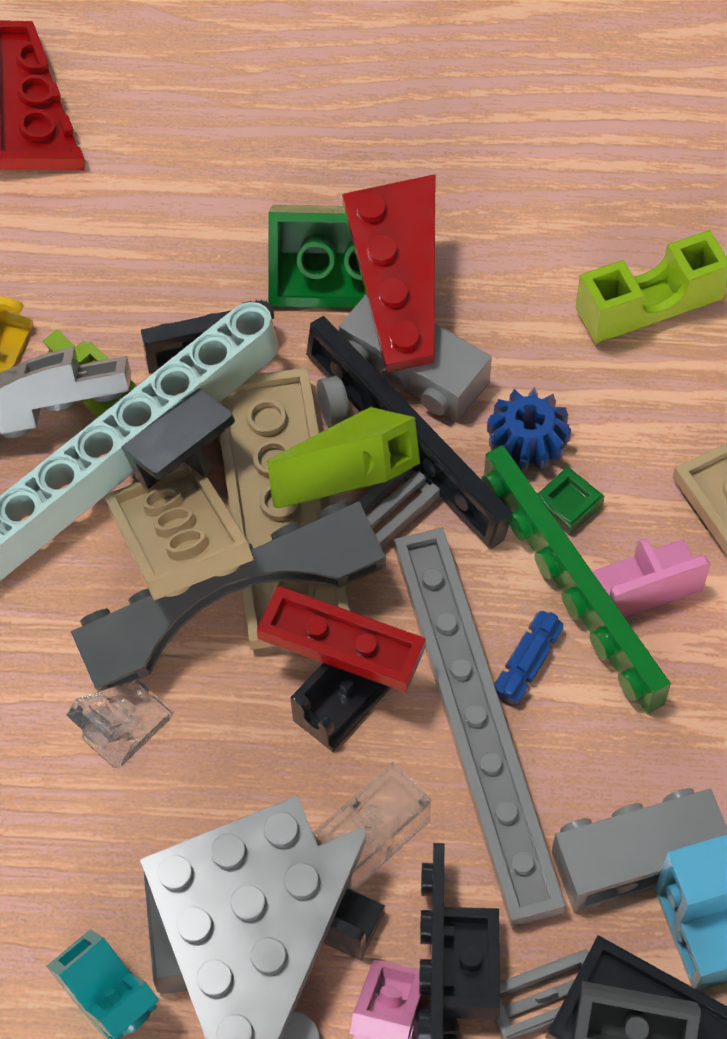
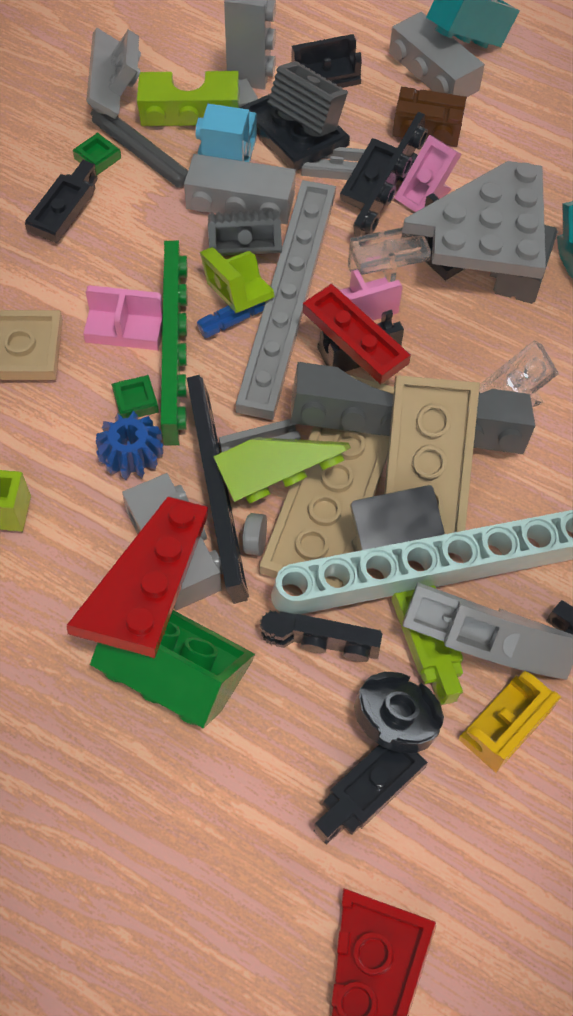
camera: 155 degrees left, 0 degrees up
(96, 239) = (367, 790): none -> black hinge
(98, 300) = (398, 712): none -> black tile
(381, 737) = (374, 296): none -> bright pink panel
(547, 686) = (236, 279): none -> lime panel
(585, 768) = (245, 232): none -> dark grey brick

